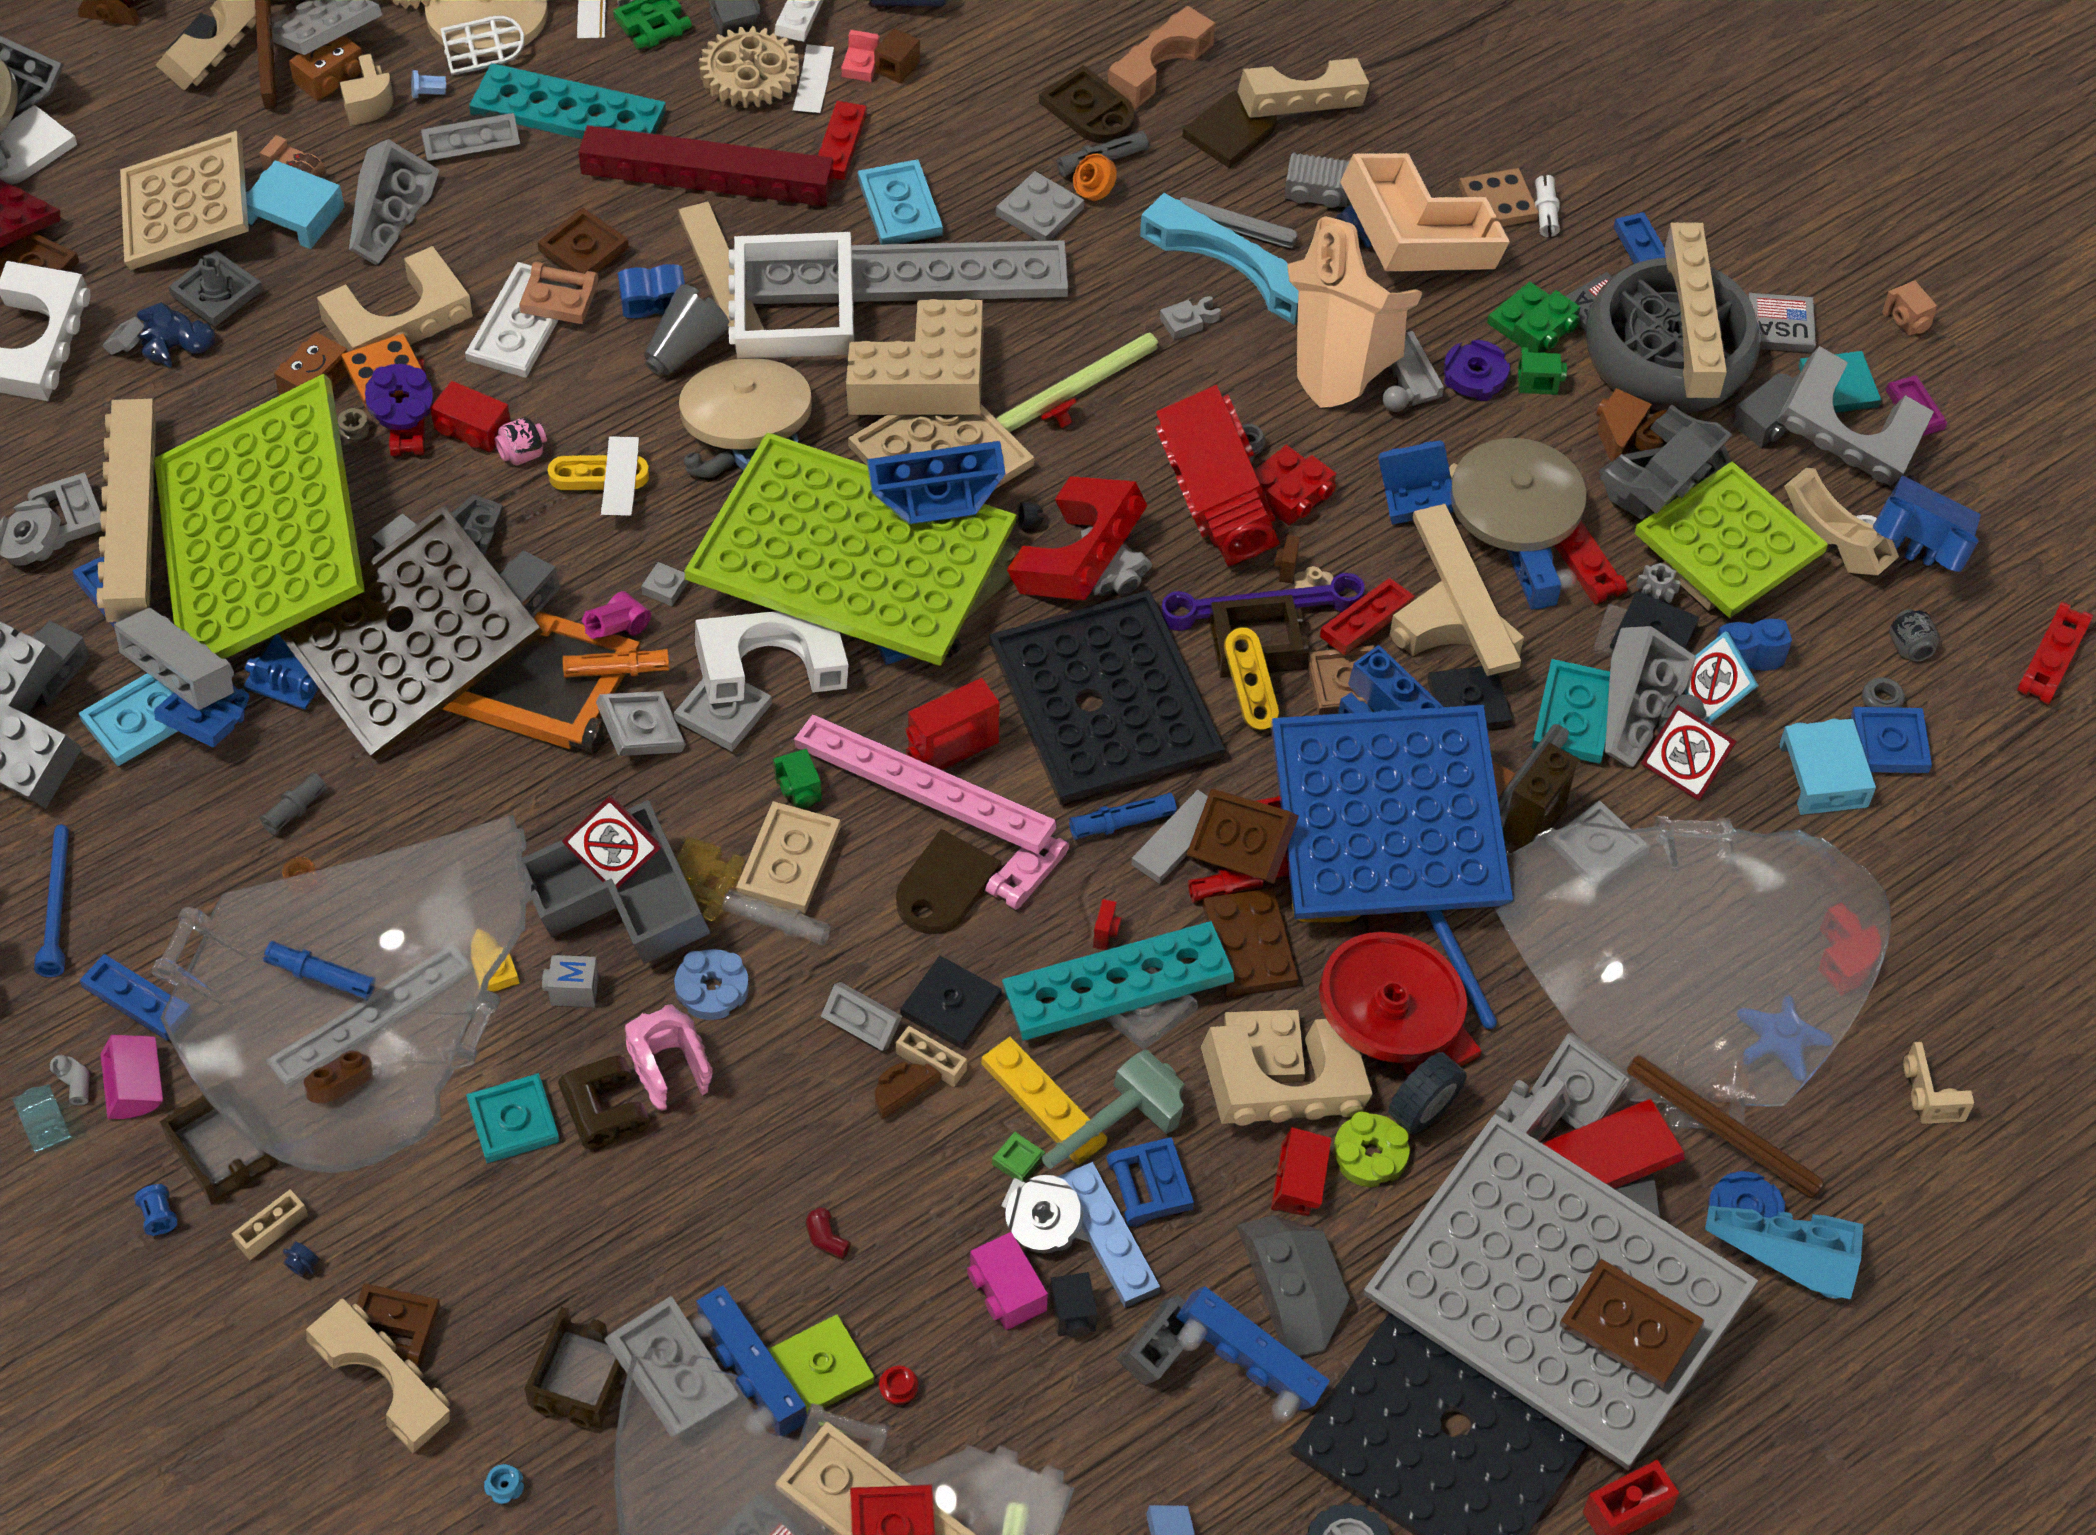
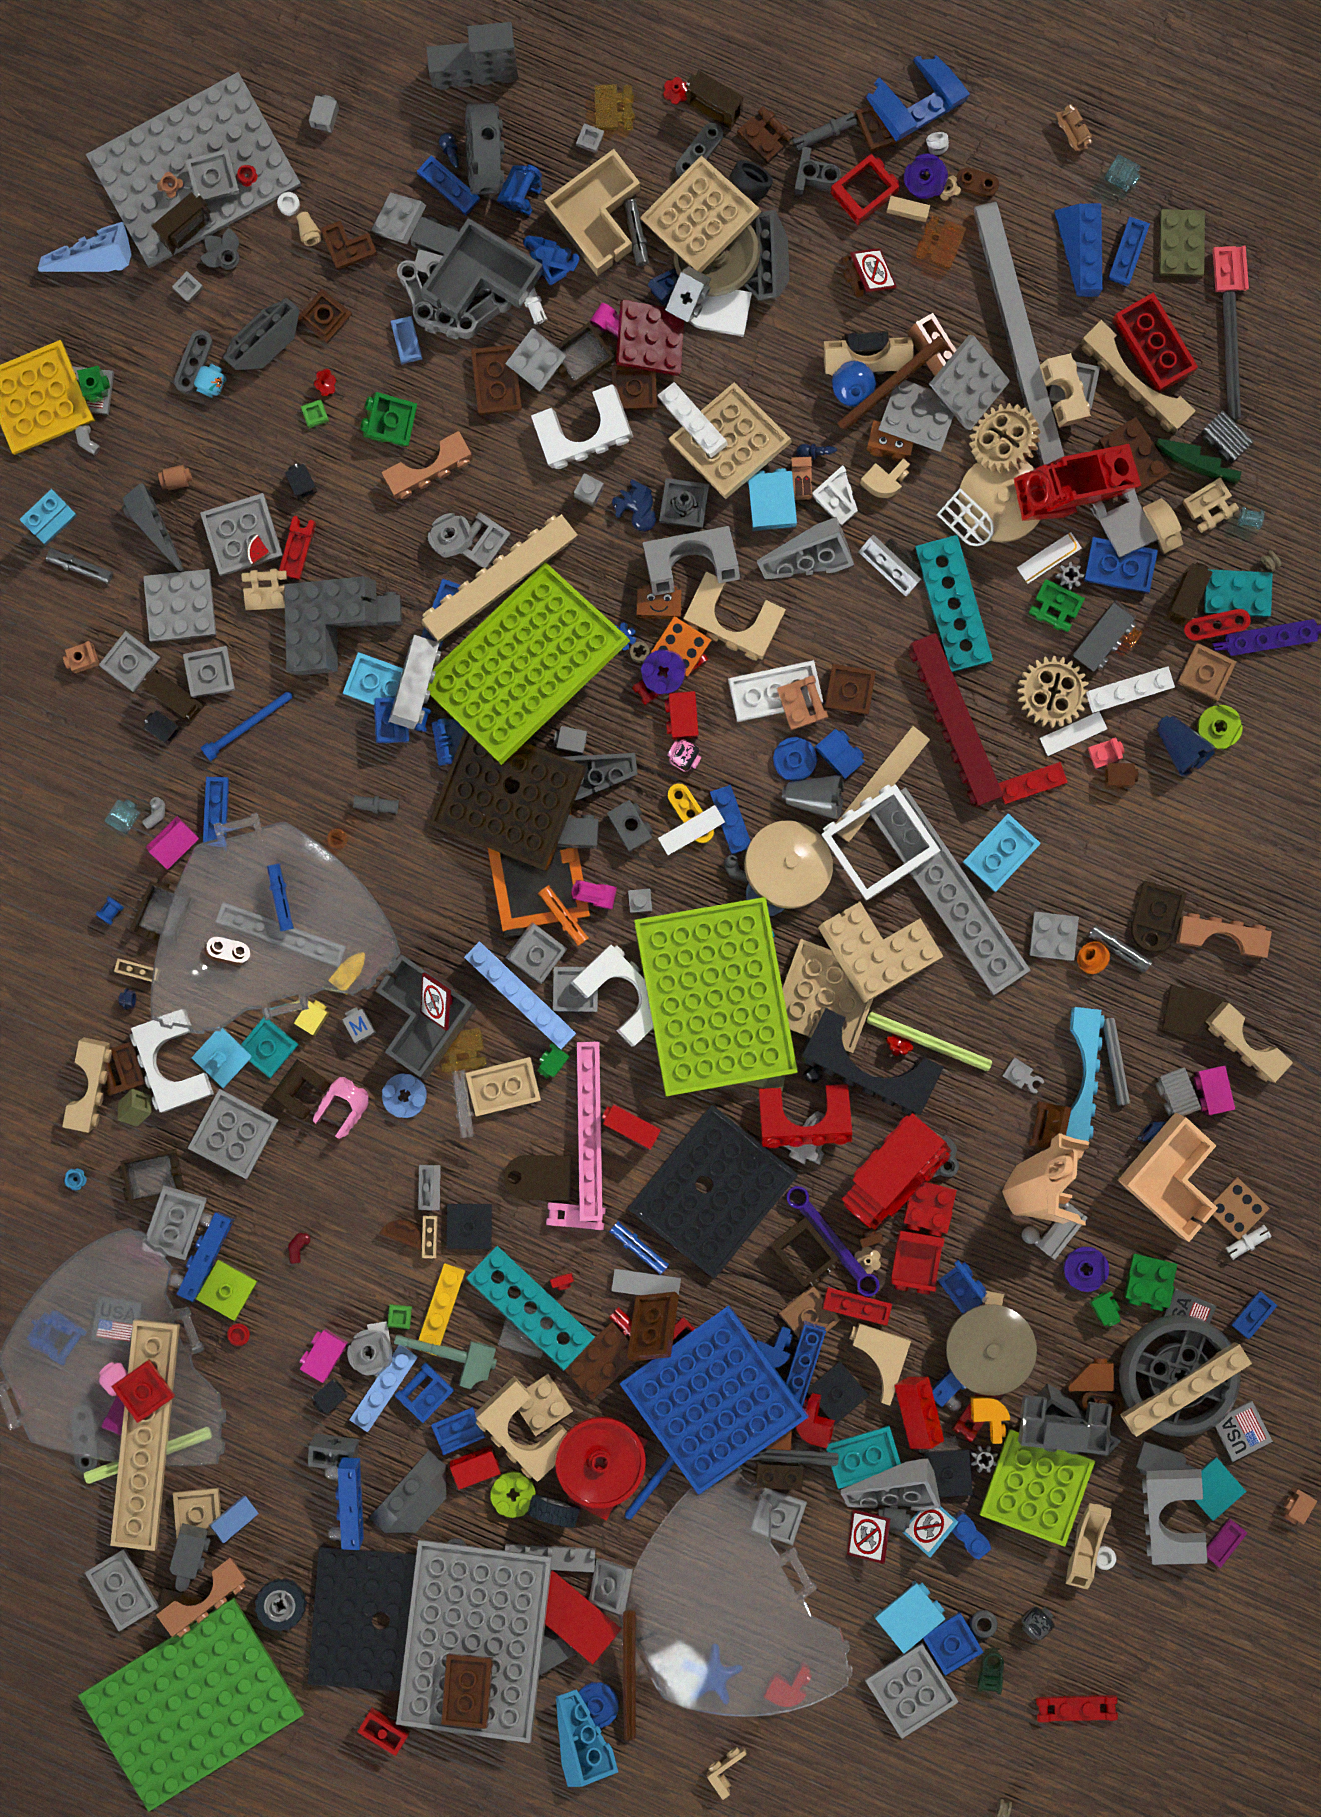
camera: 60 degrees right, 30 degrees up
(110, 367) = (588, 490): none -> light grey brick
(124, 336) = (616, 479): light grey plate -> none
(126, 223) = (692, 420): none -> white plate
(229, 59) = (853, 383): none -> blue cylinder
(265, 327) = (713, 544): none -> light grey arch
(280, 130) = (812, 451): none -> dark blue bar
(343, 146) = (836, 496): none -> white wing
(427, 84) = (915, 509): light blue piece -> none
(462, 1337) = (134, 1107): none -> olive panel
(472, 1279) = (167, 1094): none -> white arch
(480, 1182) = (221, 1057): none -> medium azure piece
(516, 1033) = (313, 1018): none -> light yellow brick
(562, 539) = (620, 816): none -> dark grey brick
(601, 1226) = (233, 1134): none -> light grey plate
(619, 341) = (794, 759): none -> blue tile
(629, 776) = (520, 995): none -> light blue arch
(654, 441) = (734, 826): none -> blue plate
(938, 481) = (782, 1019): blue wedge -> none
(1122, 430) = (826, 1049): none -> black arch
(1233, 1167) = (457, 1431): none -> blue plate
(1254, 663) = (761, 1274): yellow plate -> none
(1276, 302) = (1056, 1123): none -> reddish brown plate
(1338, 140) = (1214, 1090): none -> dark pink brick
(1348, 528) = (916, 1261): none -> red panel
(1466, 590) = (901, 1356): tan tile -> none
(1509, 735) = (815, 1429): none -> red brick
(1545, 1110) = (566, 1573): light grey hinge -> none
(1554, 609) = (919, 1412): none -> red brick
(1603, 532) = (990, 1409): none -> light orange brick
(1930, 522) = (1119, 1598): blue piece -> none
(1932, 817) = (911, 1690): none -> light grey plate
(1952, 714) = (991, 1676): none -> clear green piece

